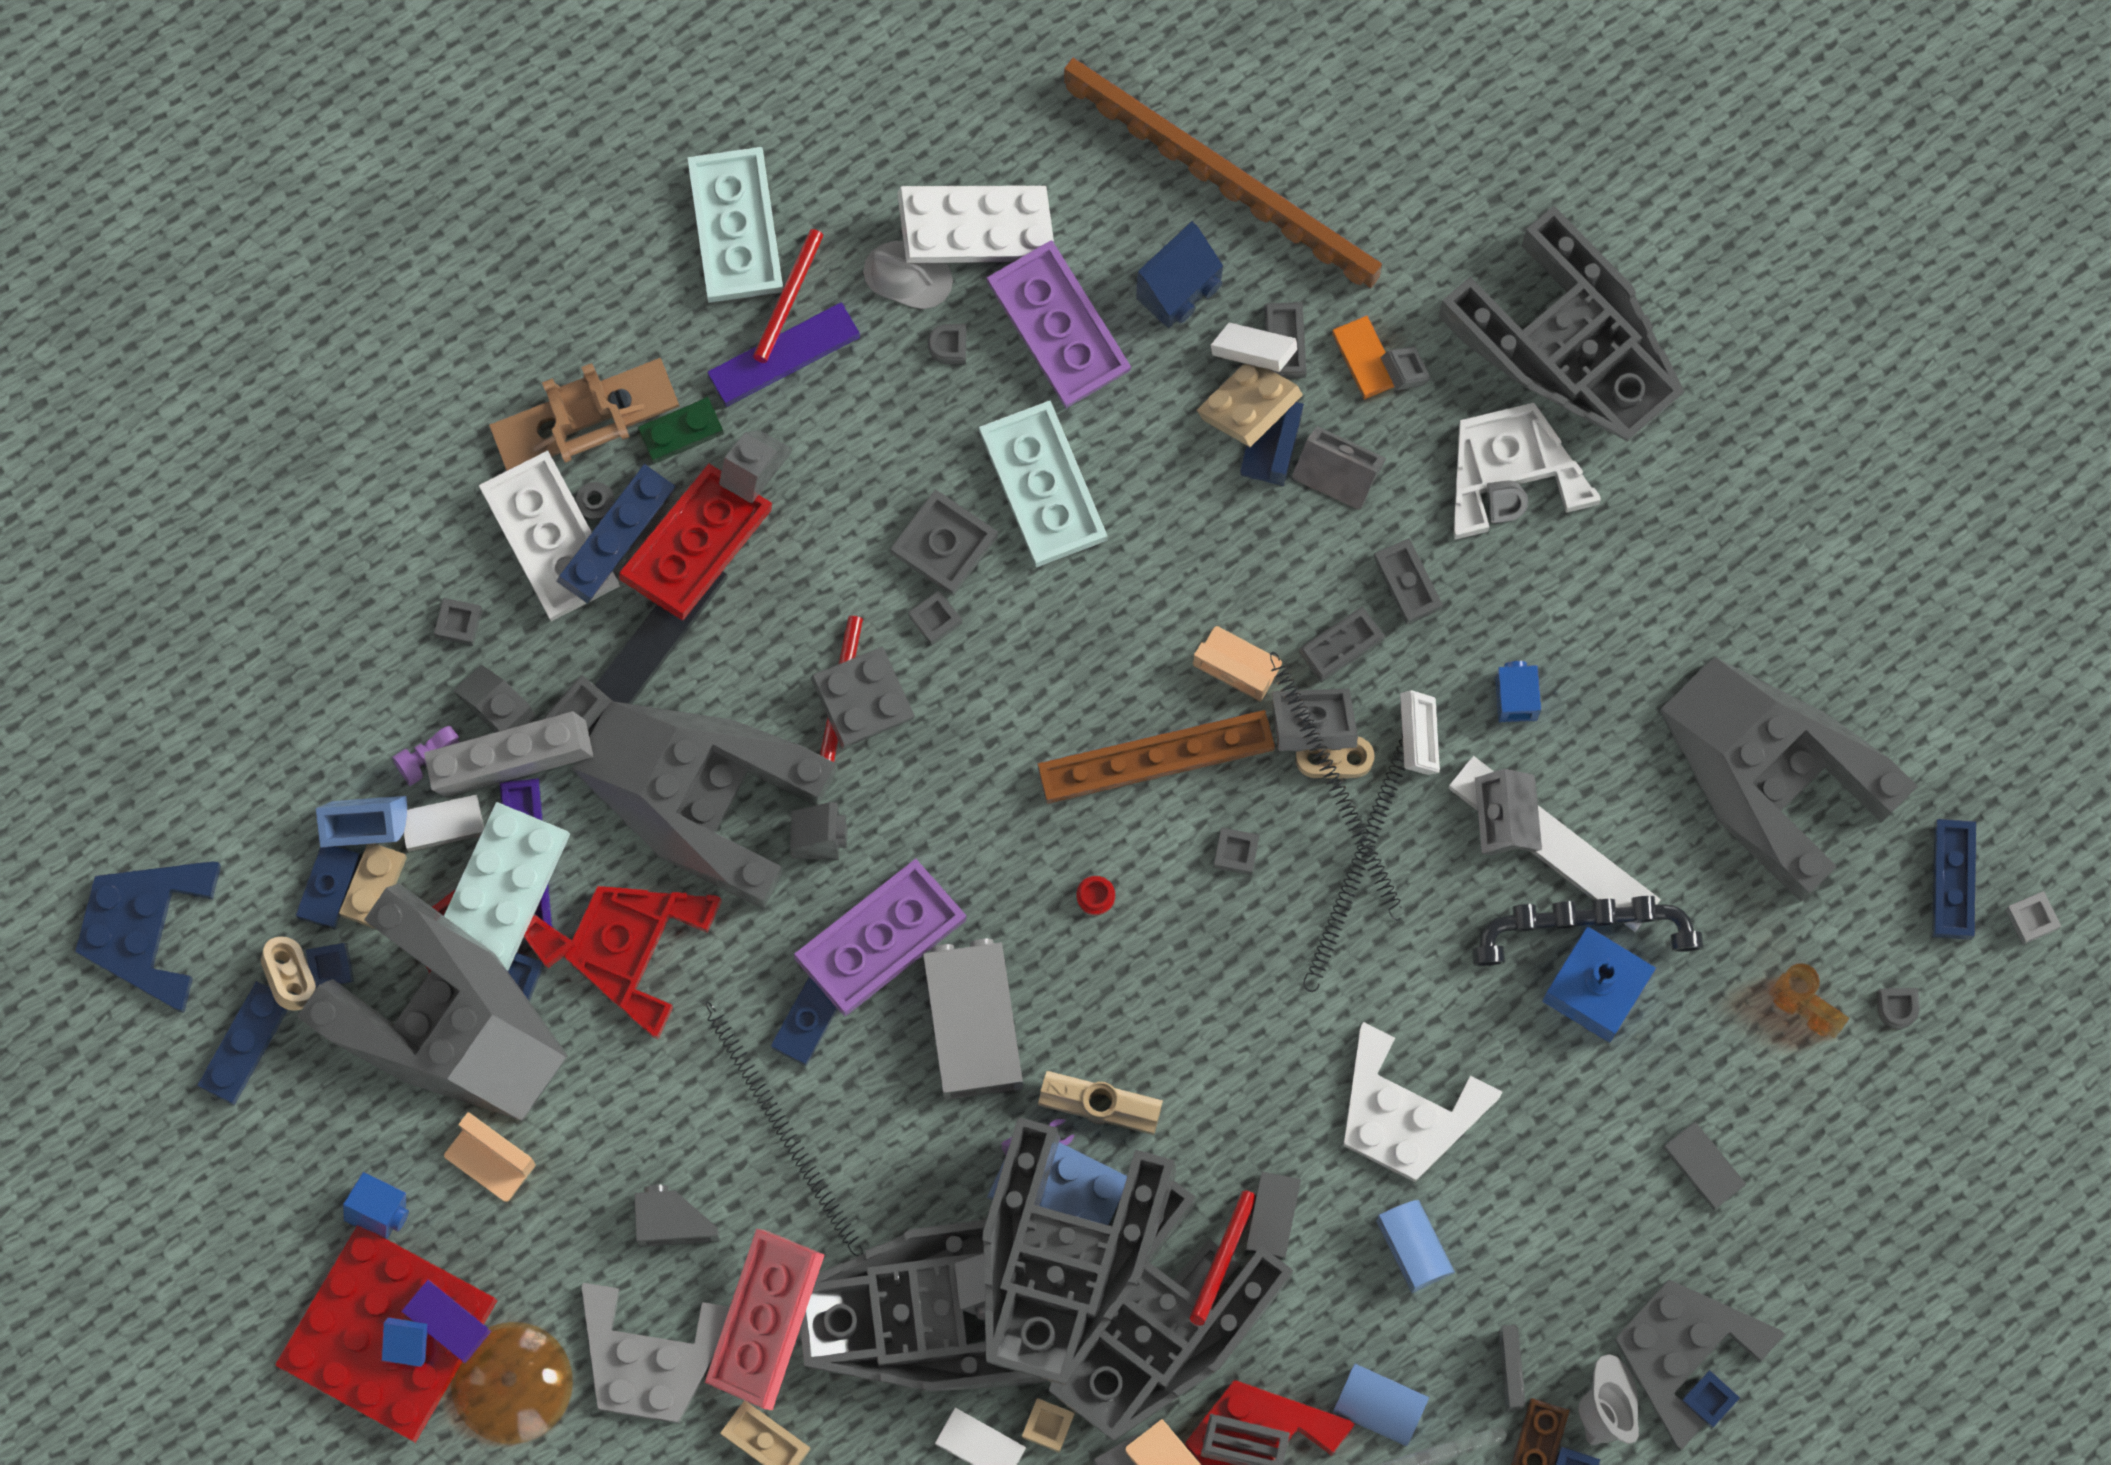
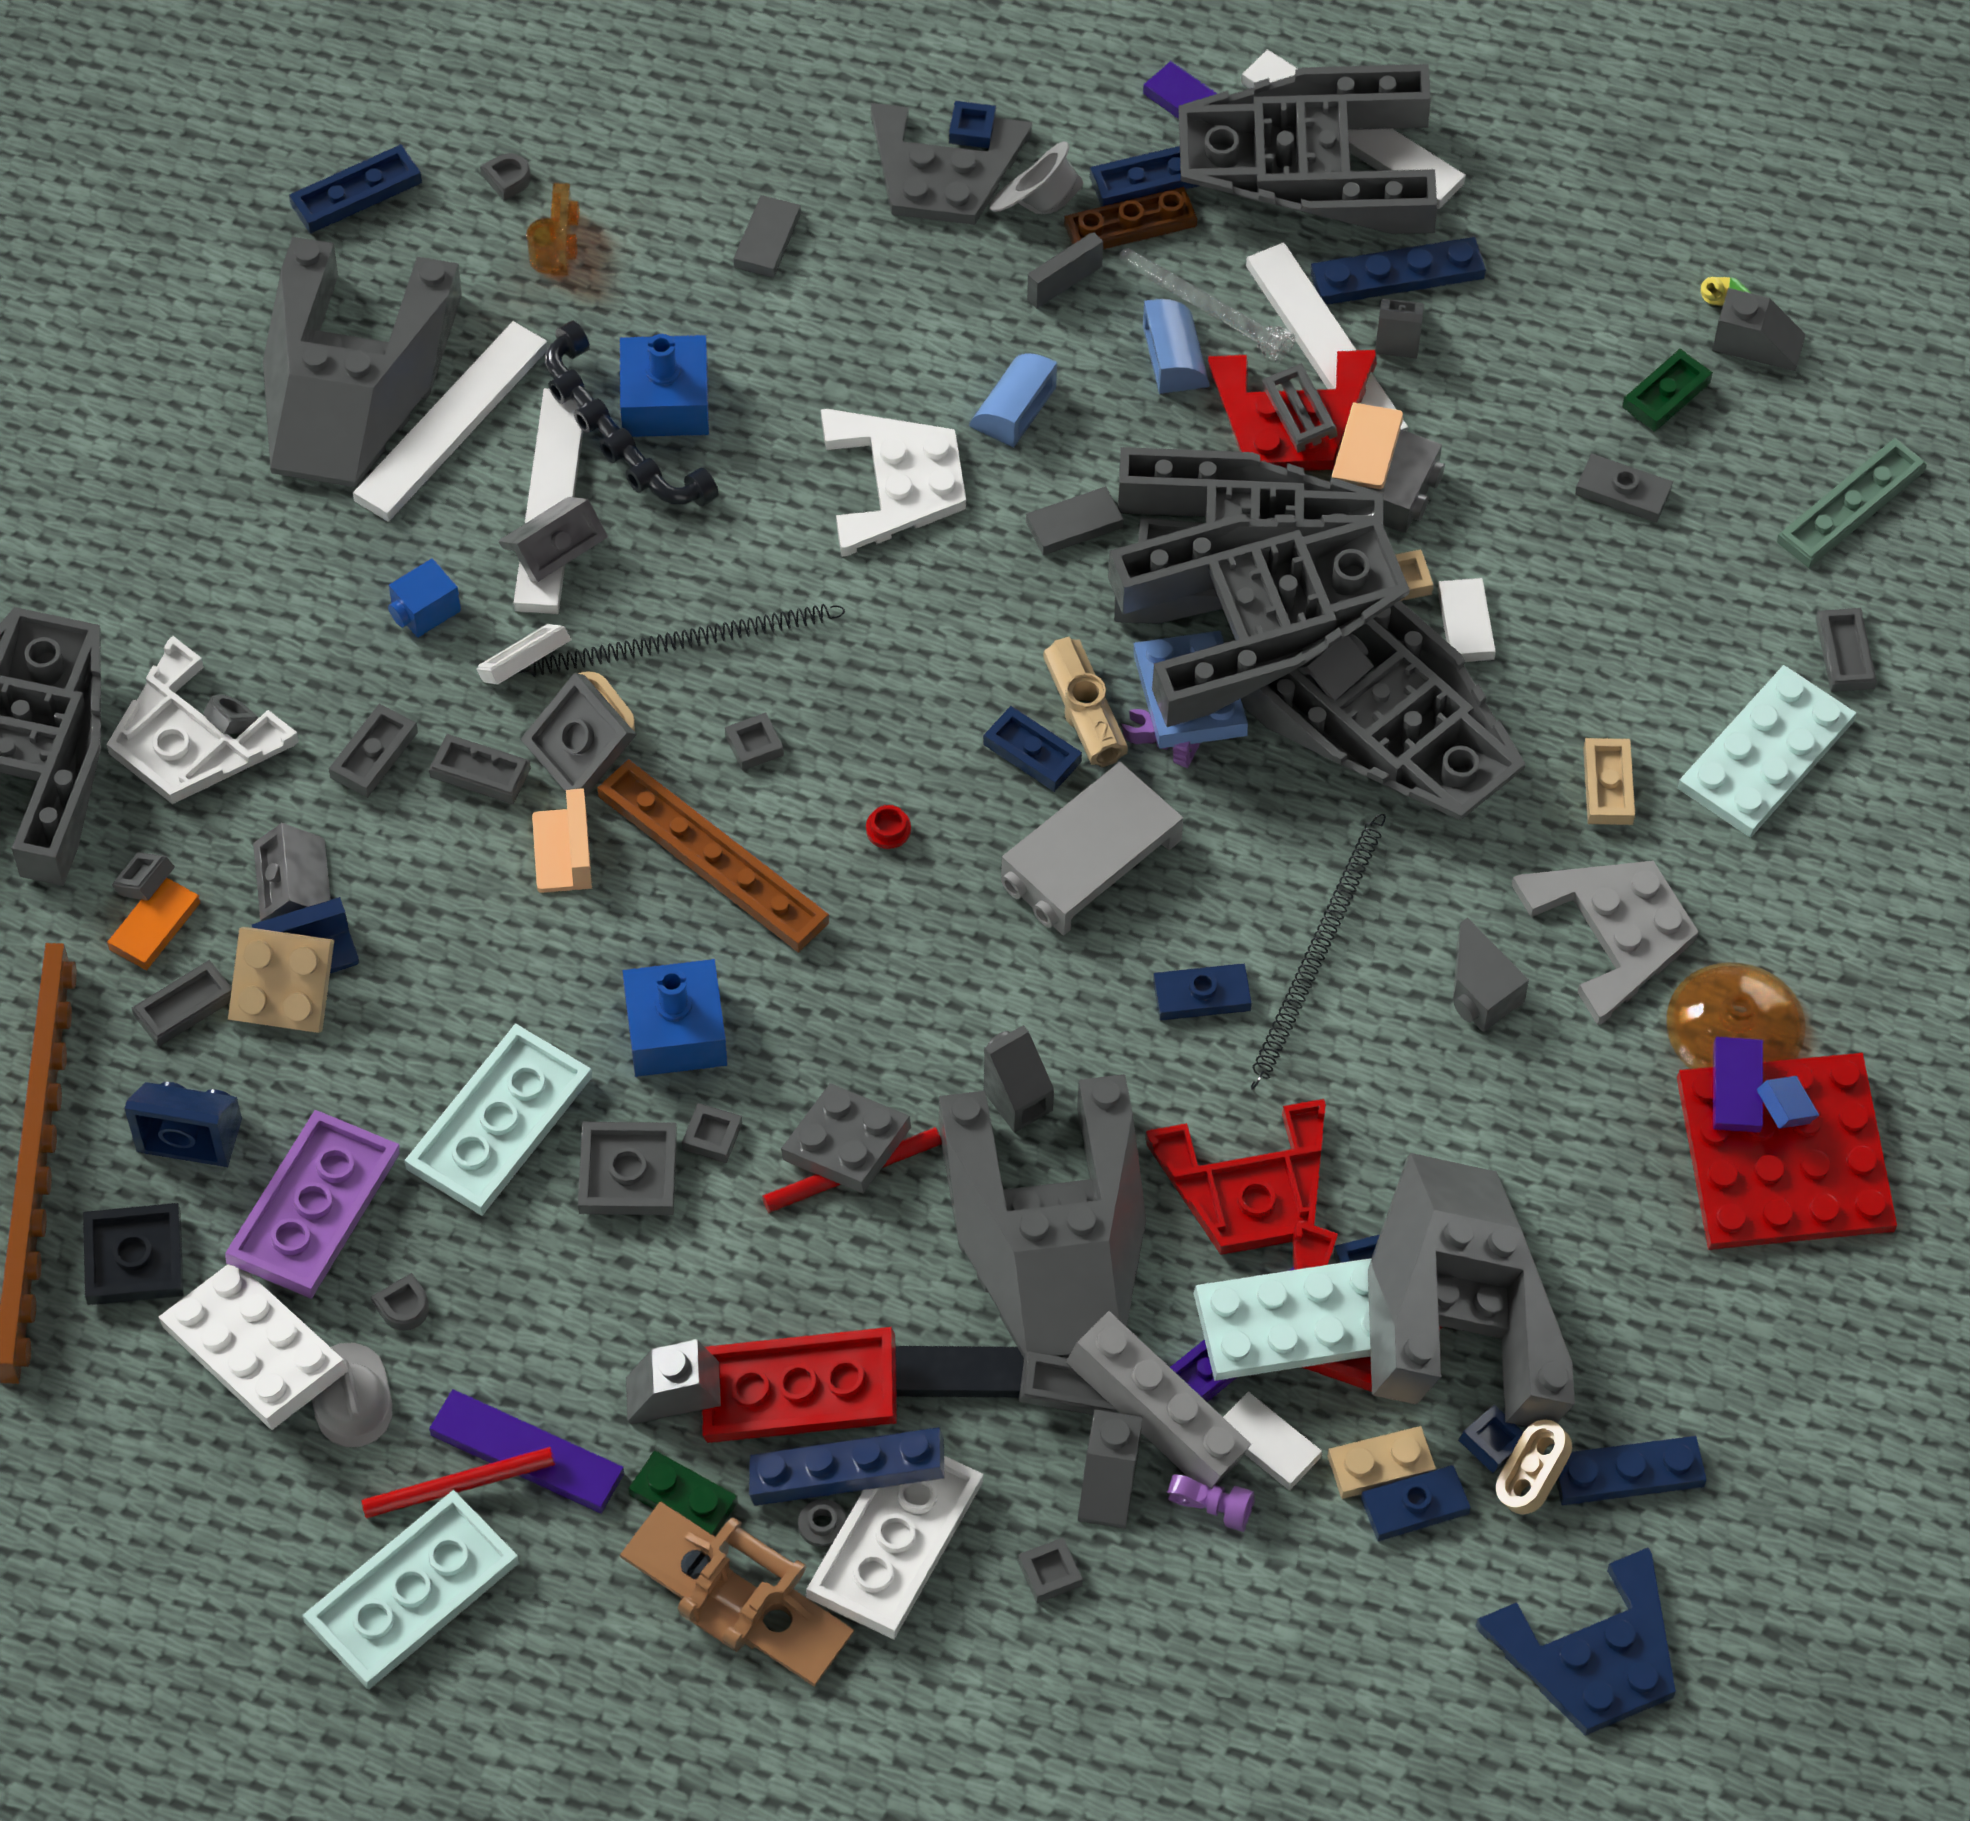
camera: 125 degrees left, 15 degrees down
(362, 821) = (1329, 1502): medium blue brick -> none
(375, 1206) = (1684, 1232): blue brick -> none
(489, 1158) = (1553, 1175): light nougat panel -> none
(764, 1319) = (1509, 829): coral tile -> none
(880, 937) = (1075, 970): medium lavender plate -> none
(1036, 642) = (675, 1017): none -> blue brick
(1089, 1040) = (1032, 748): none -> dark blue plate
(1104, 196) = (133, 1254): none -> black plate
(1222, 1258) = (1151, 515): red bar -> none
(1254, 347) = (215, 1011): white tile -> none
(1333, 780) = (627, 666): black piece -> none
(1678, 818) = (450, 421): none -> white tile
(2033, 917) = (349, 116): light grey plate -> none

